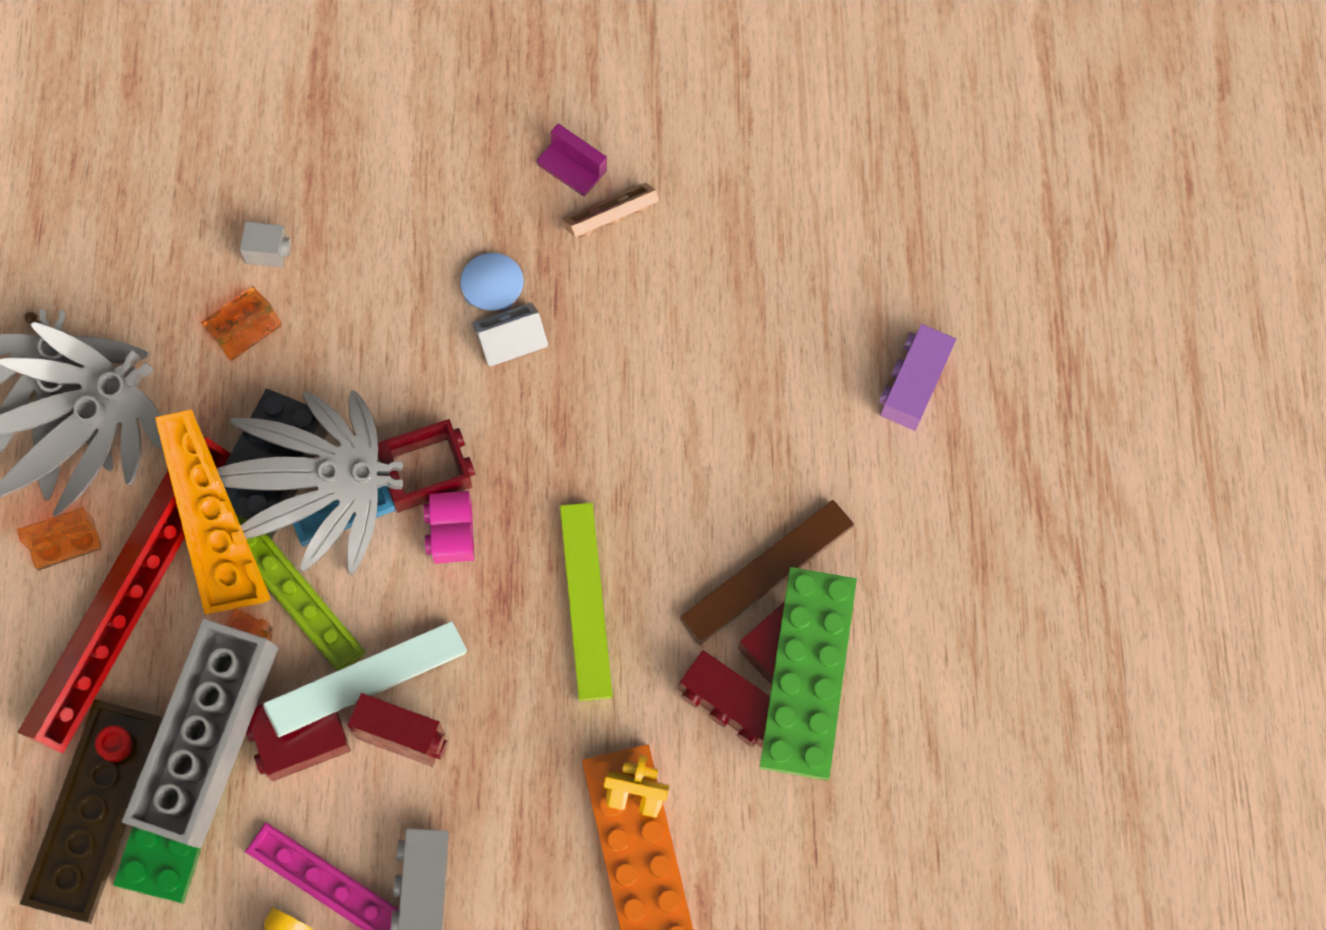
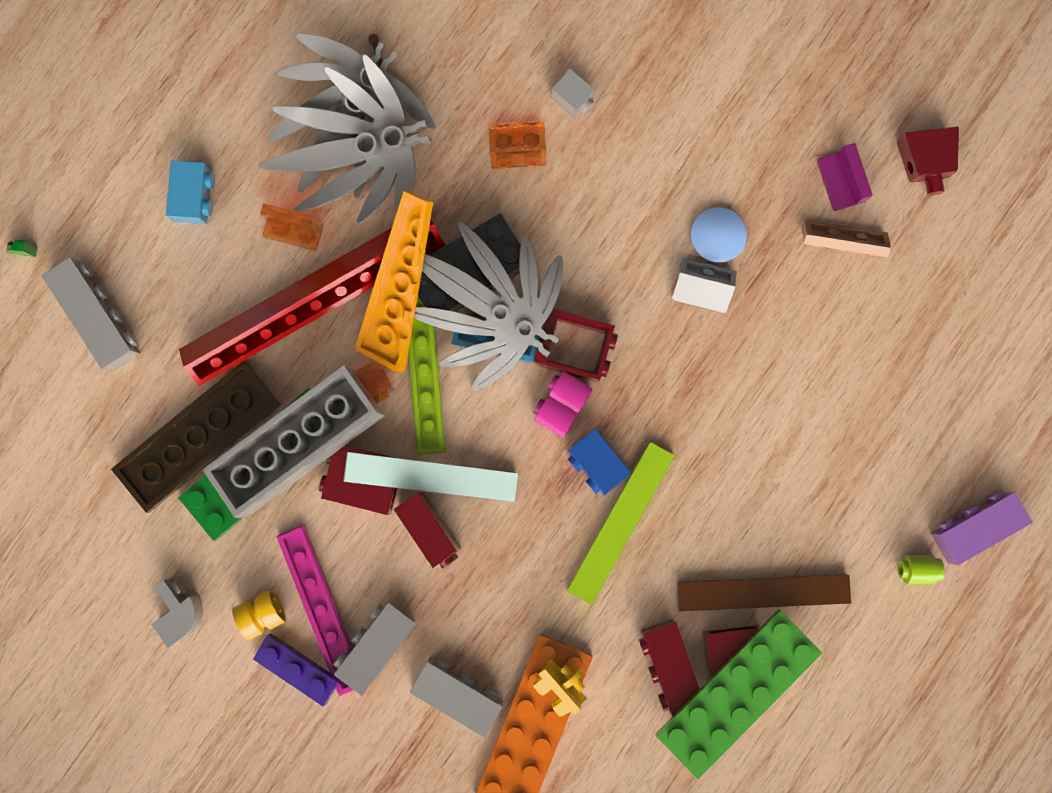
camera: 45 degrees right, 15 degrees up
(114, 743) = (236, 402): red tile -> none
(523, 556) = (598, 462): none -> blue piece
(540, 876) = (457, 696): none -> light grey brick
(634, 95) = (930, 156): none -> dark red torso
(893, 450) = (921, 569): none -> lime brick

